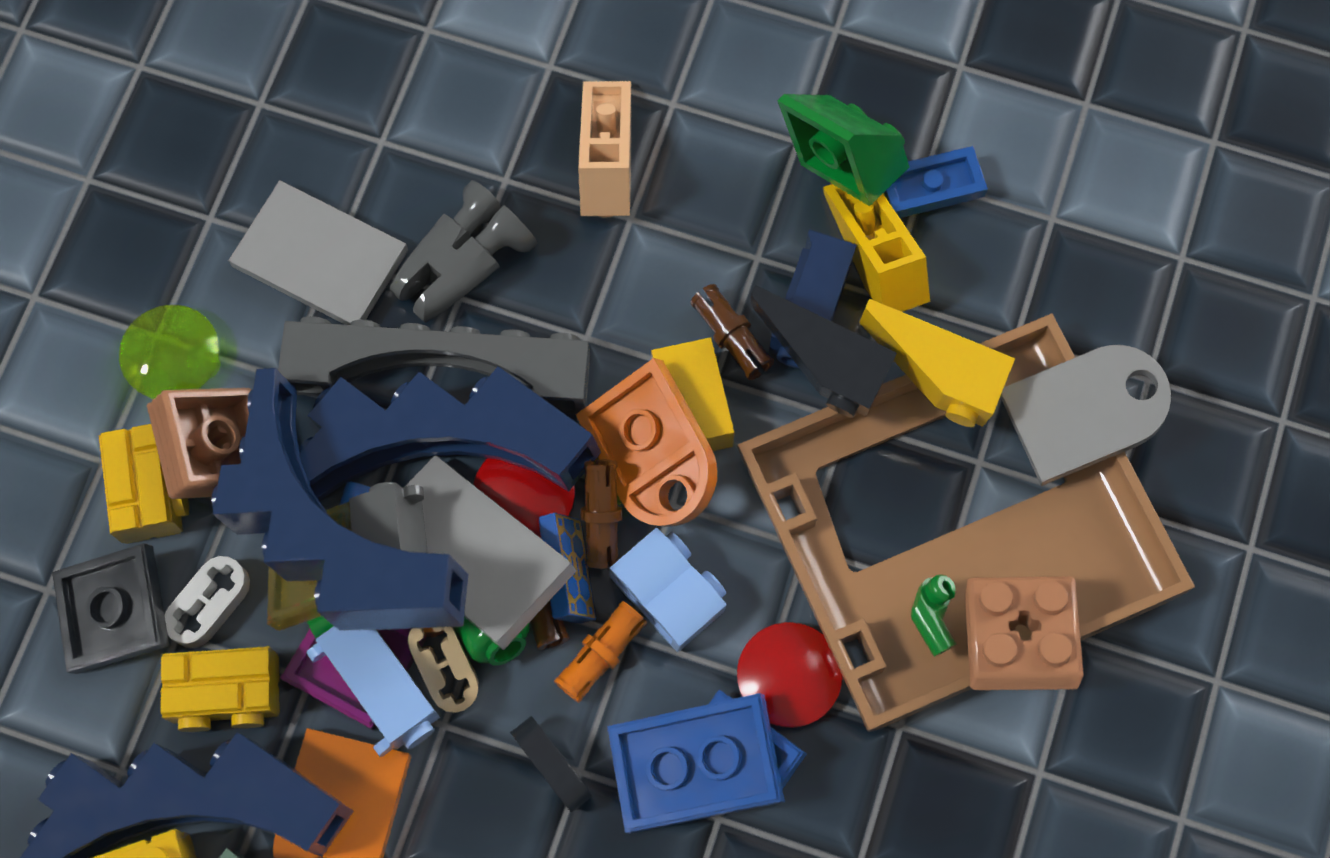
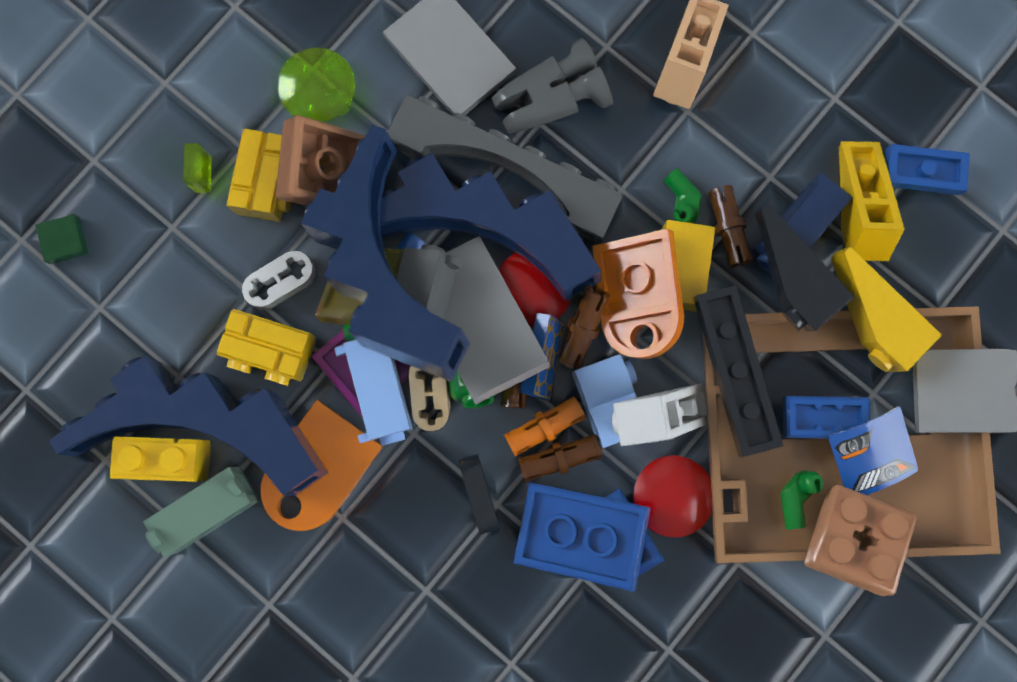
camera: 20 degrees right, 10 degrees up
(56, 504) = (197, 168): none -> clear neon green tile
(110, 608) = (209, 259): black tile -> none
(633, 682) = (560, 458): none -> reddish brown pin
(668, 317) = (687, 197): none -> green arm
(729, 576) = (660, 415): none -> white slope
(801, 492) = (737, 371): none -> black plate
(844, 144) = (874, 116): green slope -> none
(928, 507) = (822, 416): none -> blue plate
(1000, 526) = (874, 453): none -> sticker

